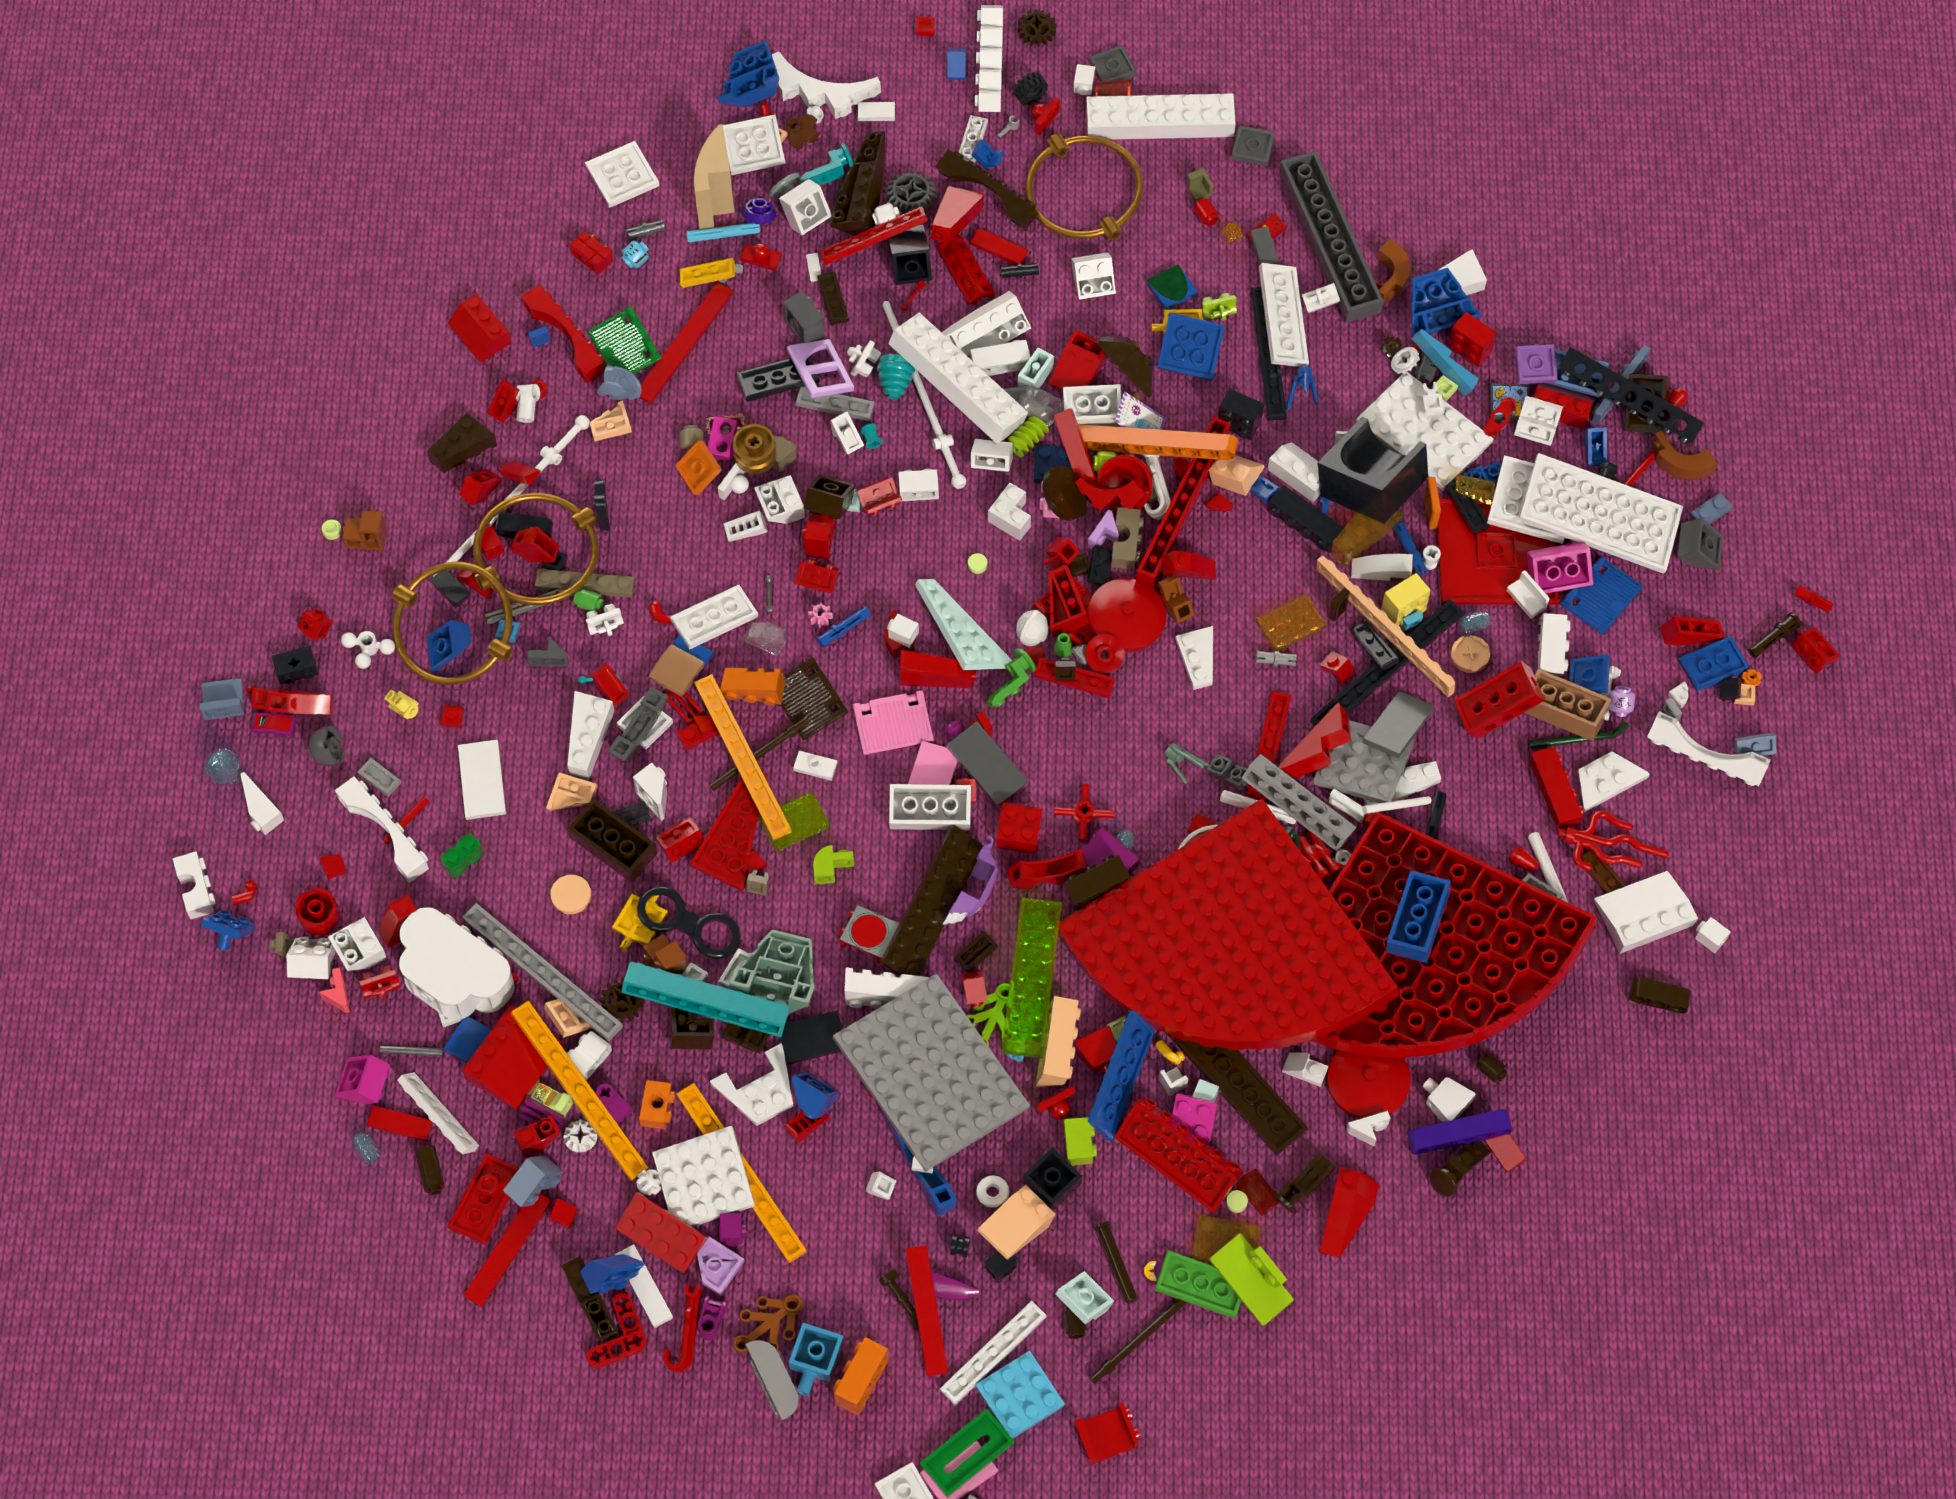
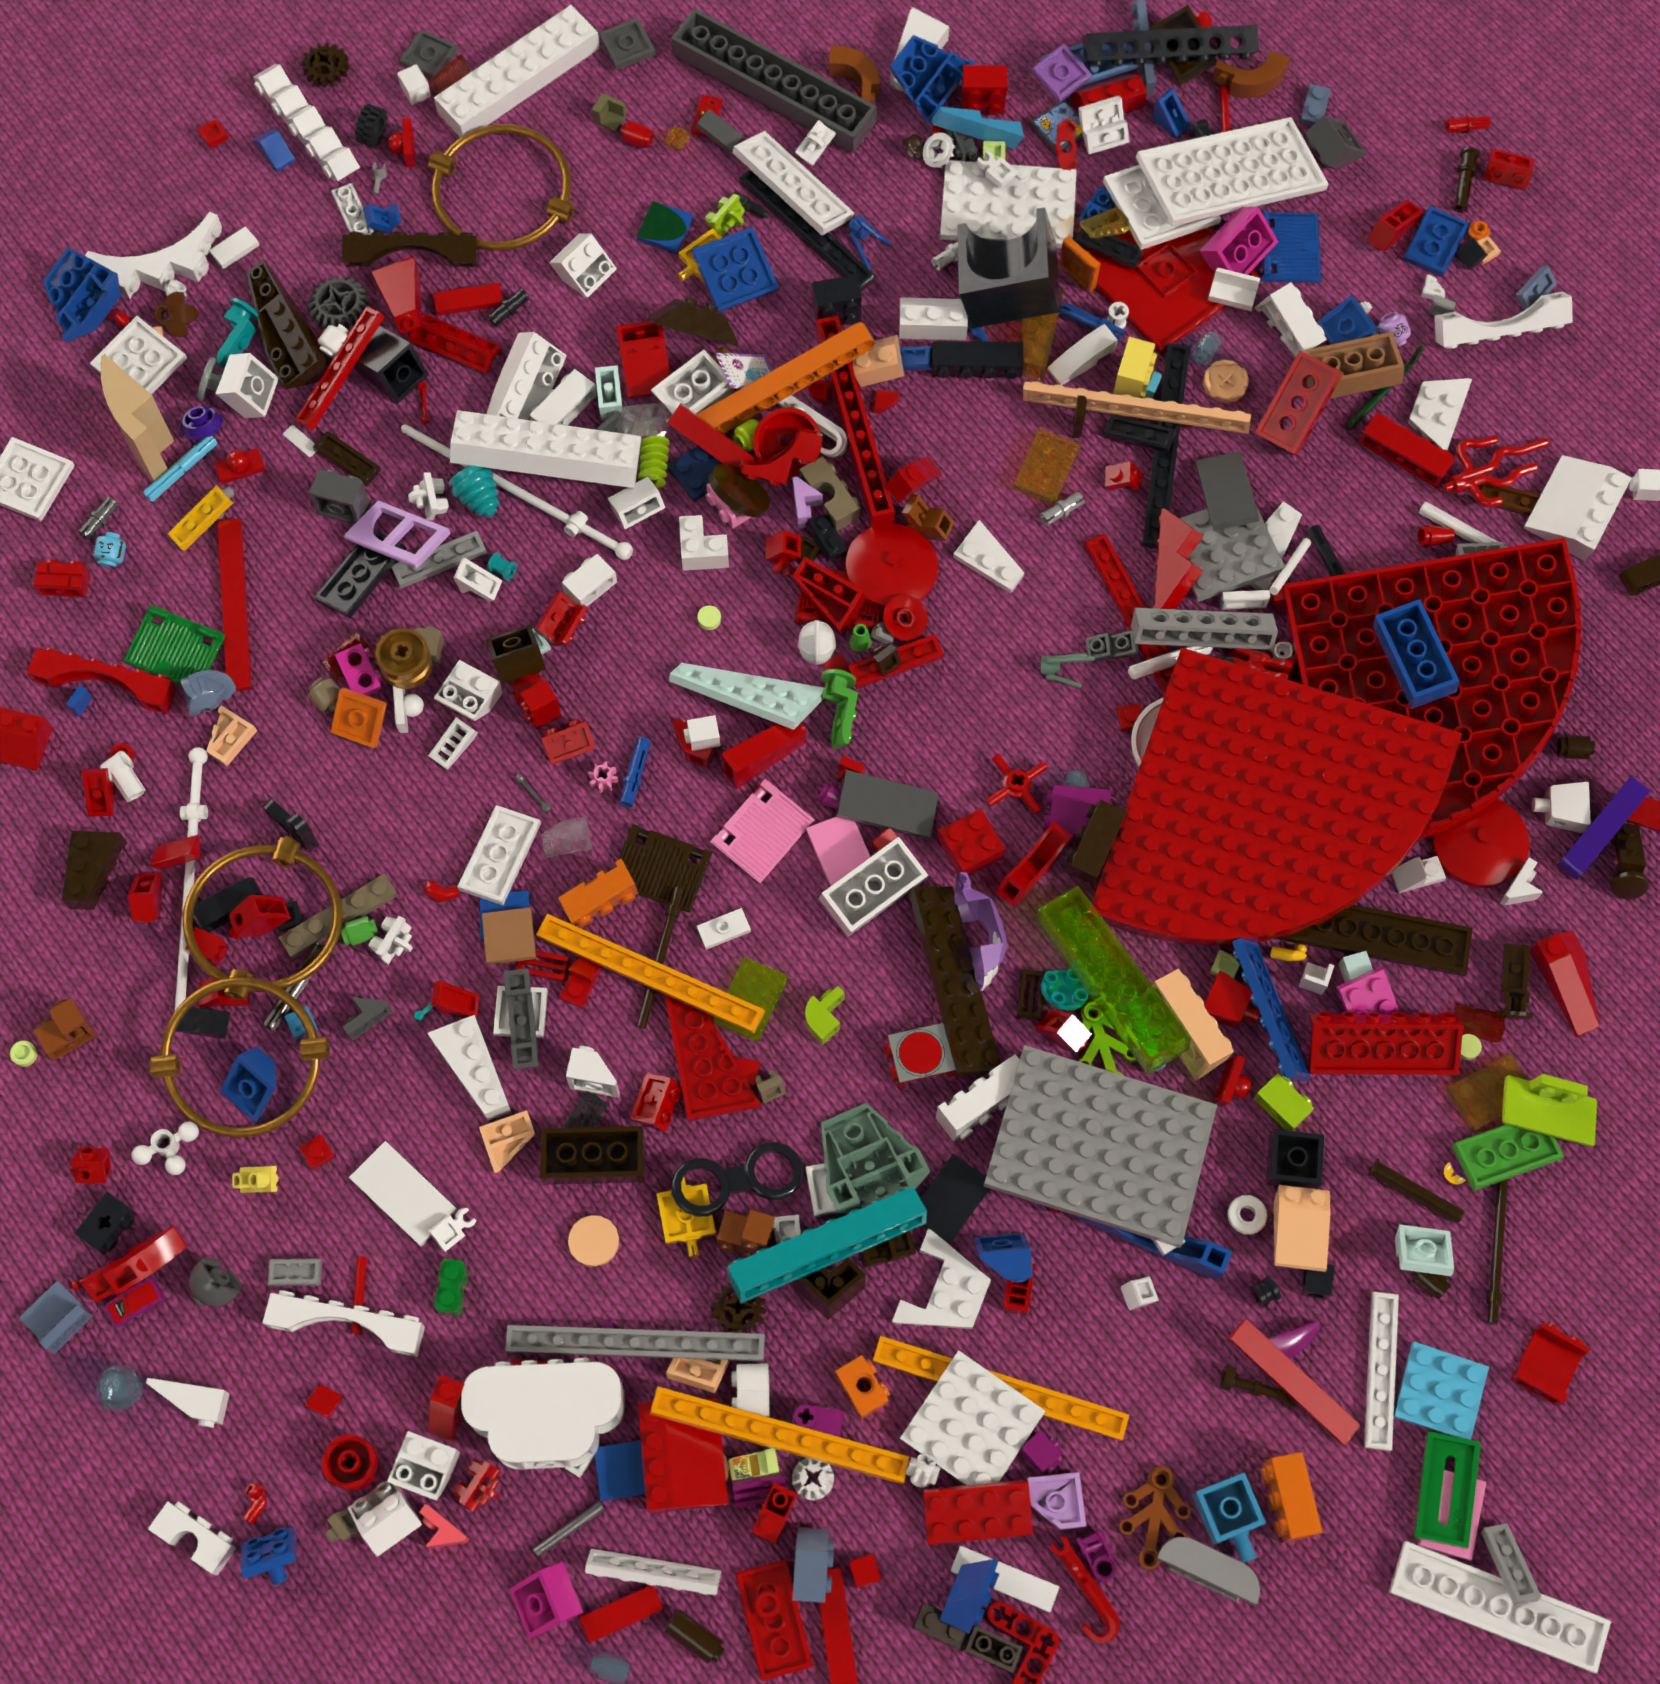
camera: 40 degrees left, 5 degrees up
(489, 821) = (449, 1231): none -> white plate
(997, 963) = (1063, 990): none -> teal dish
(1242, 310) = (749, 205): none -> black piece

